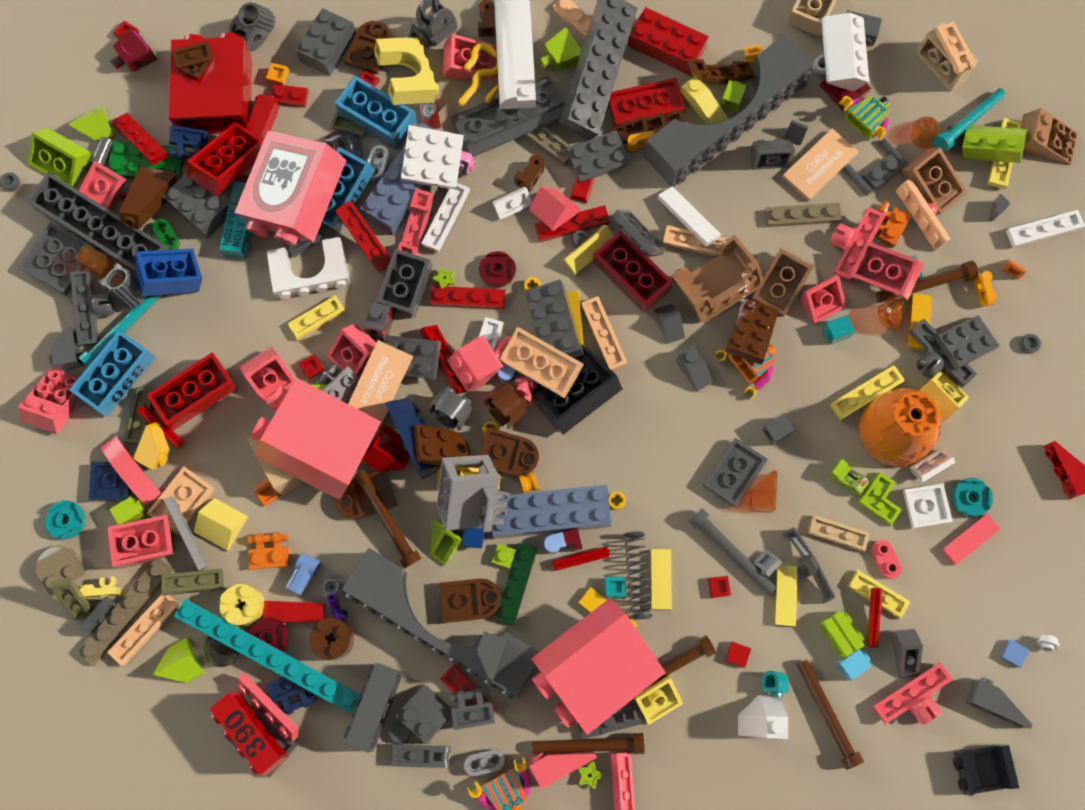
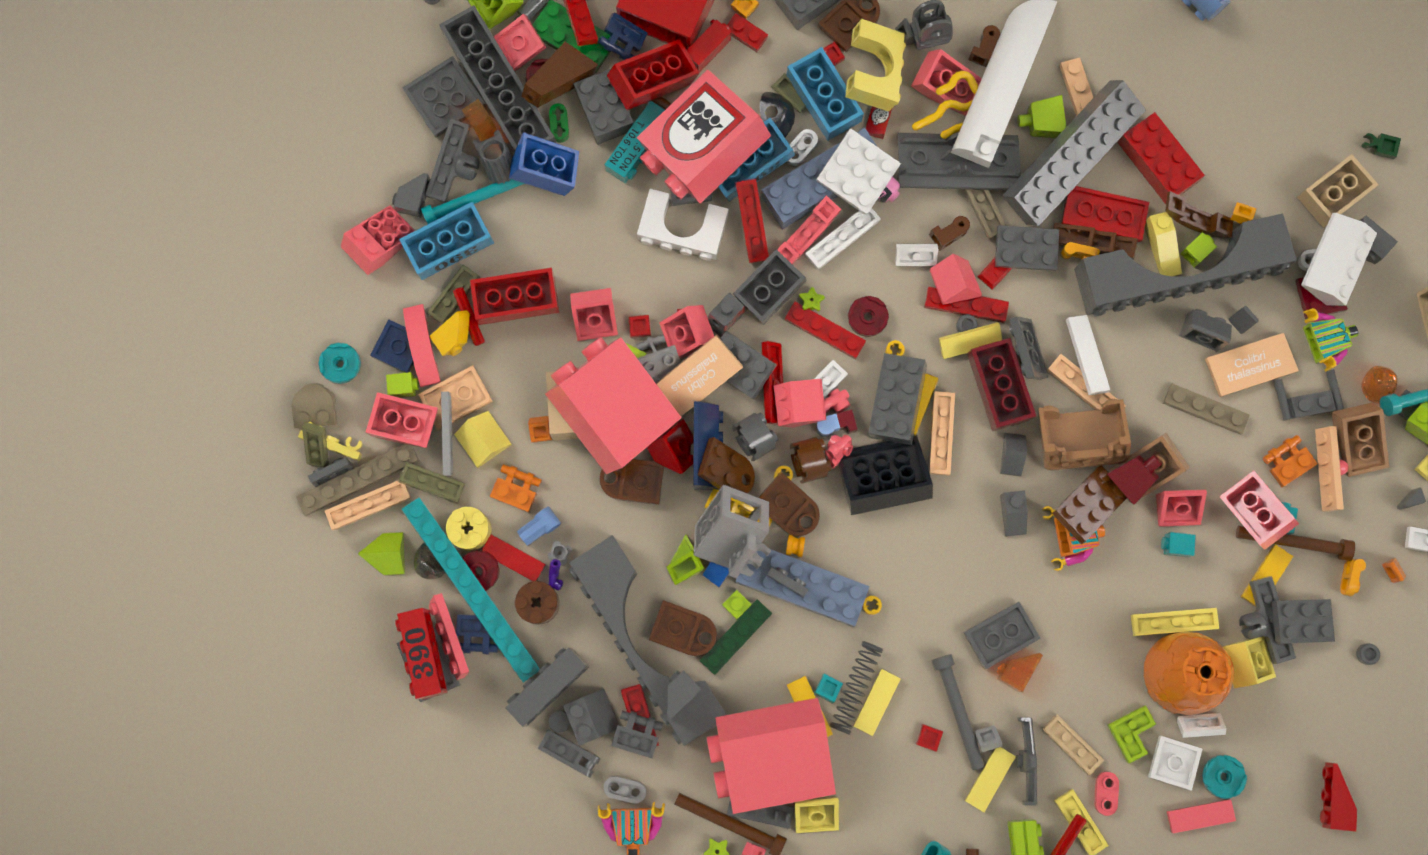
camera: 25 degrees right, 5 degrees up
(316, 317) = (667, 278): light yellow tile -> none
(408, 556) = (642, 516): reddish brown piece -> none
(541, 362) = (865, 434): light nougat tile -> none
(545, 513) = (780, 576): none -> dark grey plate
(557, 765) = (686, 826): coral slope -> none
(563, 540) = (793, 616): leg -> none
(581, 558) = (809, 644): red axle -> none
(703, 648) = (883, 788): reddish brown piece -> none
(738, 654) = (914, 811): red tile -> none
(776, 291) = (1136, 476): none -> dark red torso
(778, 429) = (1067, 614): dark grey brick -> none
(848, 478) = (1111, 696): lime leg -> none
(854, 239) = (1244, 462): coral plate -> none
(892, 314) = (1242, 556): clear orange hat -> none

